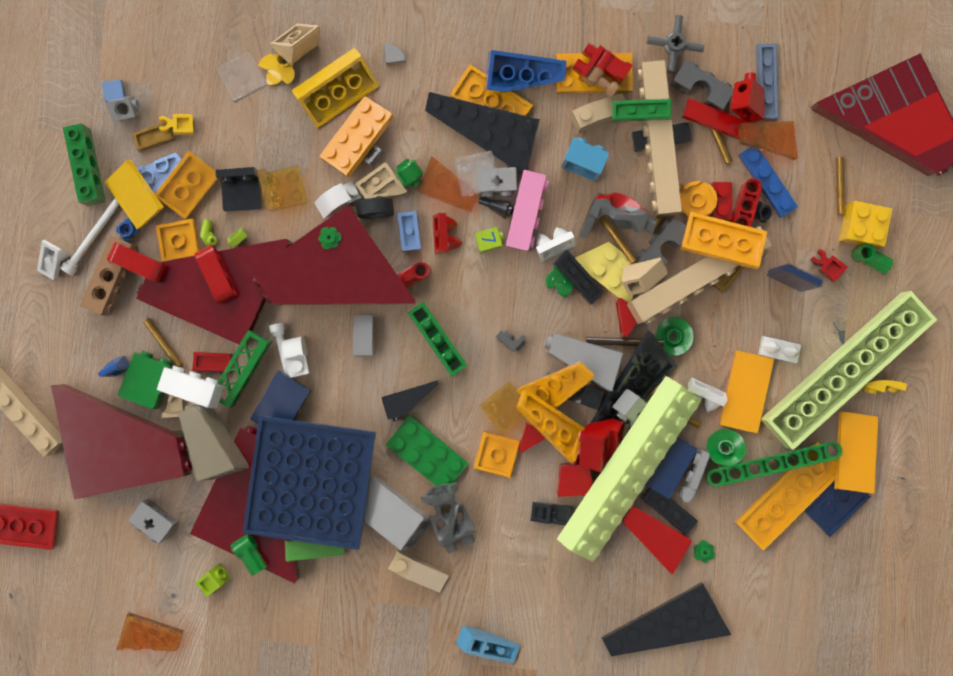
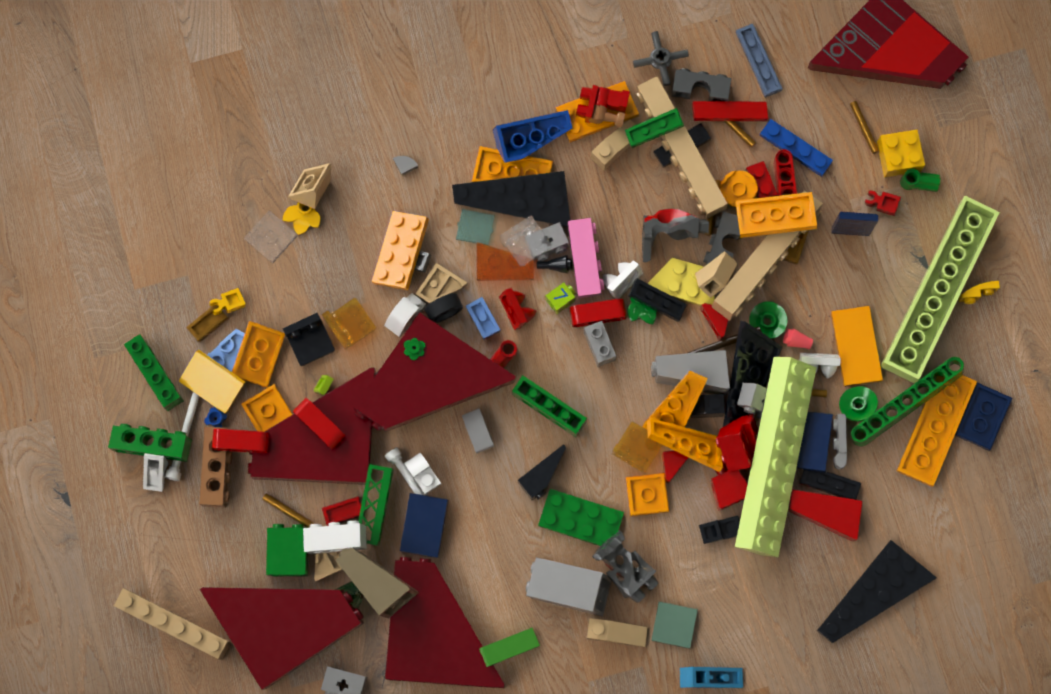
camera: 20 degrees left, 10 degrees down
(31, 216) = (177, 451): none -> green brick
(113, 89) = (155, 295): medium blue tile -> none
(114, 367) = (253, 550): blue slope -> none
(117, 113) = (170, 314): light grey brick -> none
(206, 234) = (292, 394): lime arm -> none
(246, 550) = (447, 671): green piece -> none
(309, 482) = (481, 583): dark blue plate -> none
(335, 87) = (363, 213): yellow slope -> none
(409, 173) = (462, 265): green head -> none
(436, 141) = (475, 227): none -> clear light blue piece
(473, 583) = (674, 625): none -> sand green tile
(507, 339) = (613, 382): dark grey bracket -> none
(508, 298) = (599, 344): none -> light grey brick
(518, 267) = (594, 312): none -> red beam
(585, 159) = (620, 191): dark azure brick -> none
(617, 239) = (680, 252): pearl gold bar -> none
(693, 364) = (796, 339): none -> coral cone
(699, 549) = (874, 509): green plant -> none
(749, 99) = (747, 82): red torso -> none
(763, 212) = (806, 177): black plate -> none
(770, 136) = (782, 107): clear orange wing -> none
(779, 349) = (871, 295): white tile -> none
(858, 460) = (981, 361): light orange tile -> none

